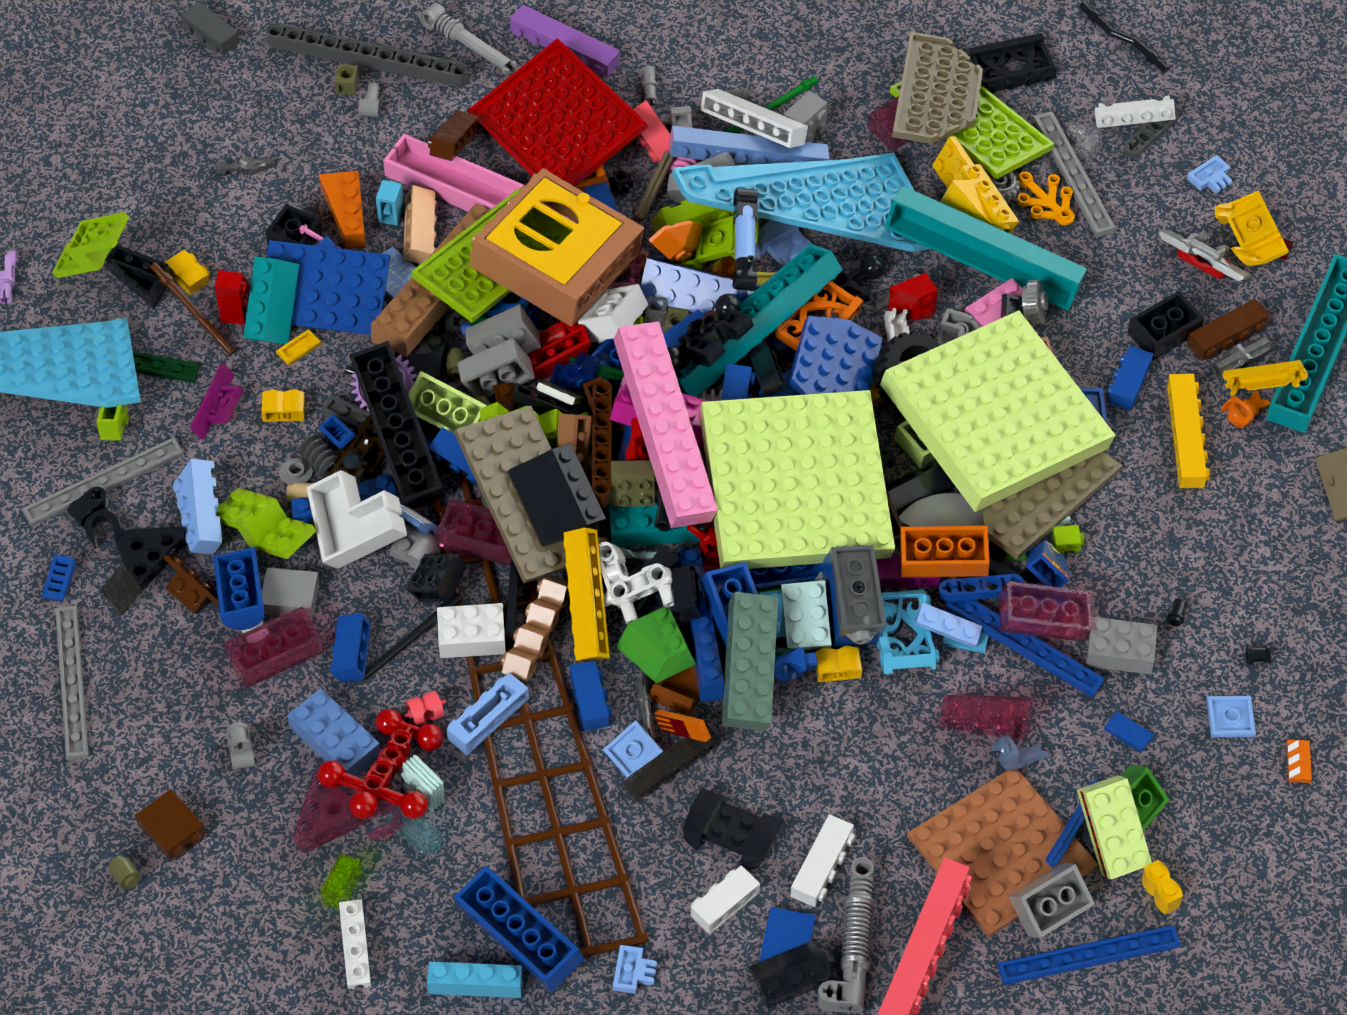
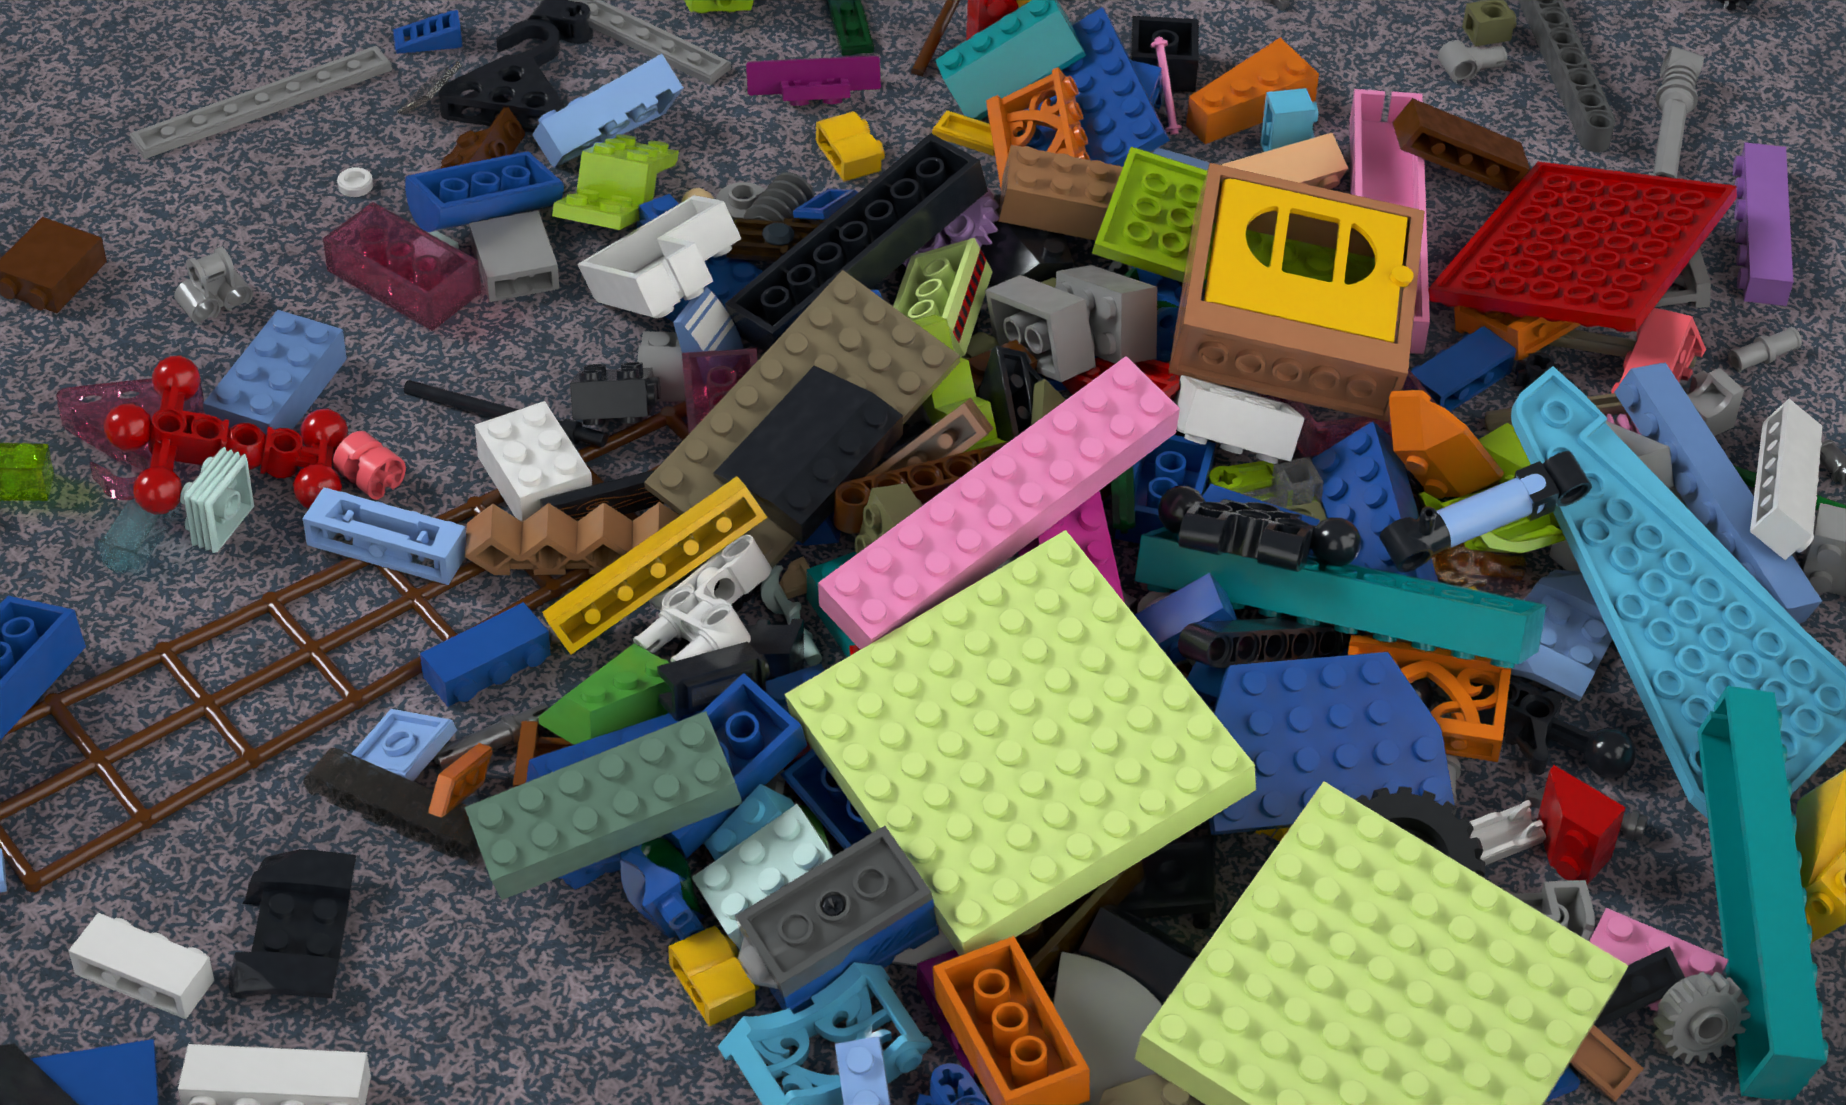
camera: 65 degrees right, 10 degrees down
(174, 654) = (355, 182): none -> white tile
(318, 323) = (1010, 116): none -> orange fence
(350, 647) = (443, 348): blue brick -> none

